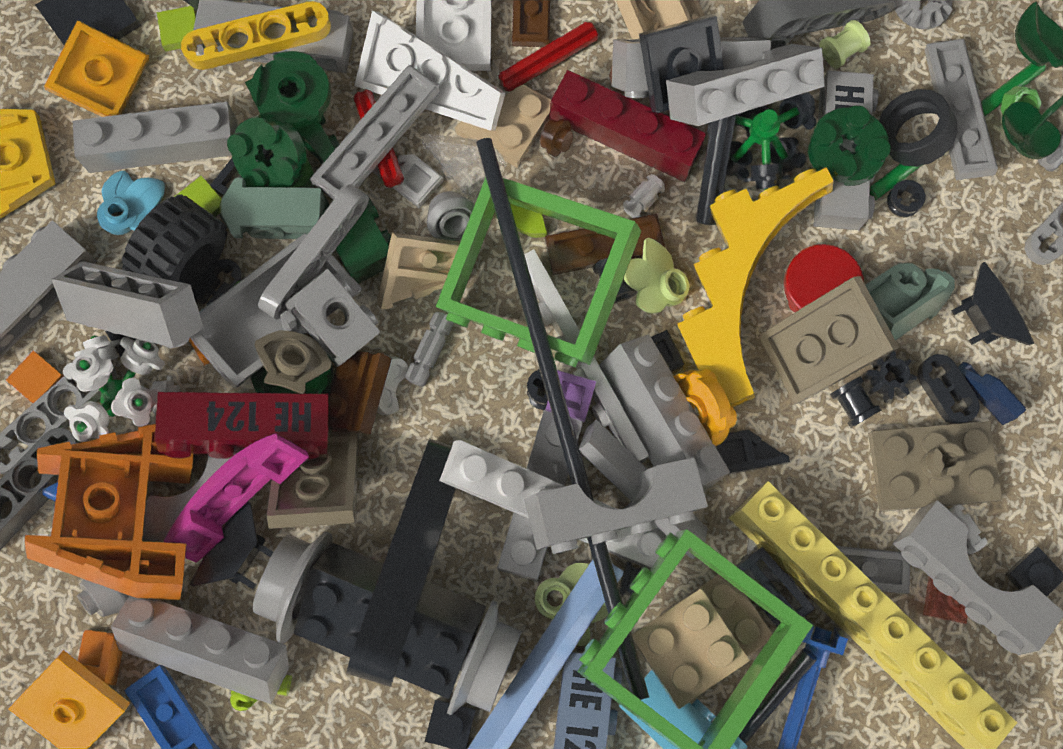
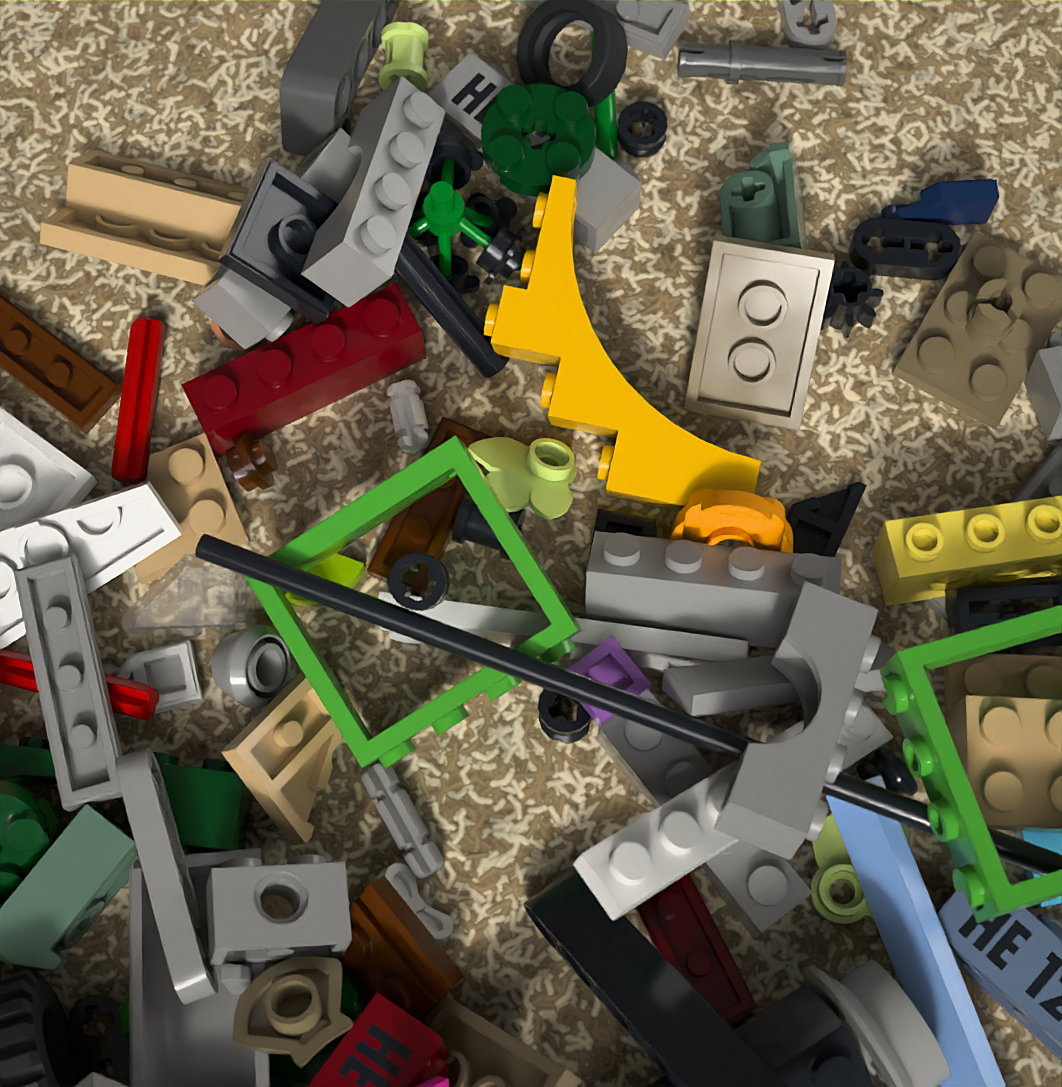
camera: 50 degrees left, 5 degrees down
(467, 544) = (693, 945): none -> dark red tile
(535, 256) = (401, 590): none -> black bush
(817, 272) = (665, 289): red tile -> none
(855, 402) = (848, 358): black bush -> none
(993, 311) = (849, 133): black piece -> none
(998, 234) = (767, 64): none -> dark grey pin

